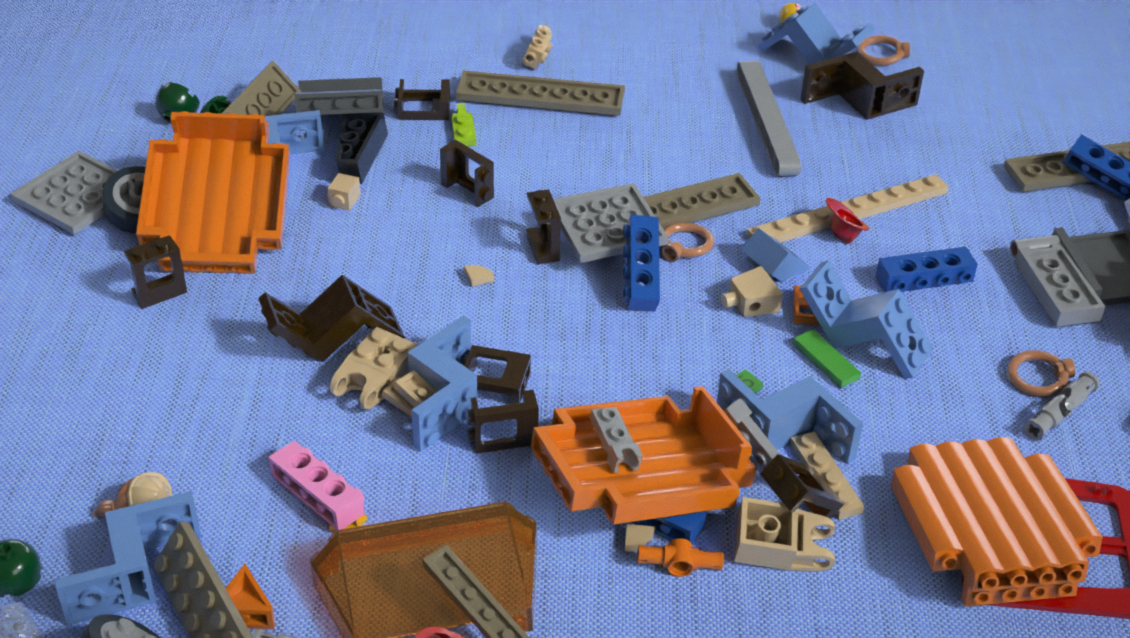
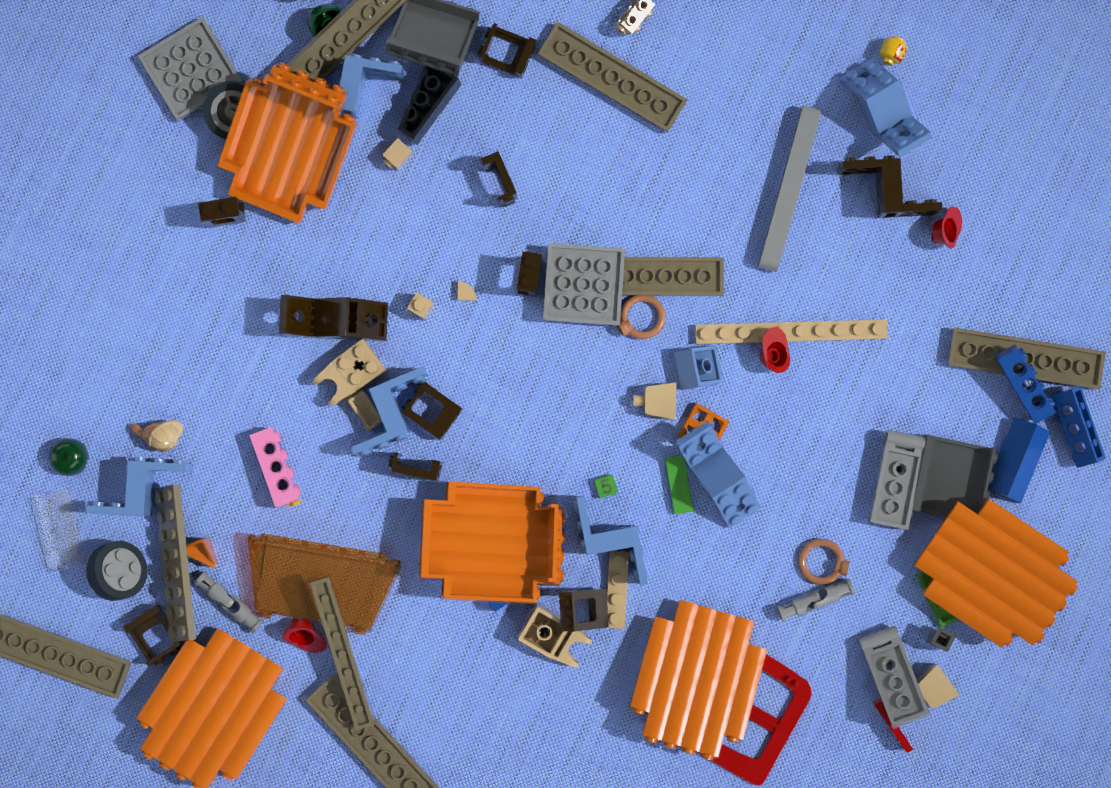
camera: 25 degrees right, 45 degrees up
(414, 388) = (370, 417): tan plate -> none
(431, 293) = (420, 306): none -> tan brick
(463, 126) = (528, 99): lime hinge -> none
(616, 438) = (476, 525): light grey plate -> none
(645, 296) = (577, 375): blue brick -> none
(680, 557) = (483, 621): orange pin -> none
(762, 448) = (571, 538): light grey plate -> none
(902, 50) = (967, 136): nougat piece -> none
(926, 269) = (835, 429): blue brick -> none
(936, 103) = (948, 228): none -> red piece

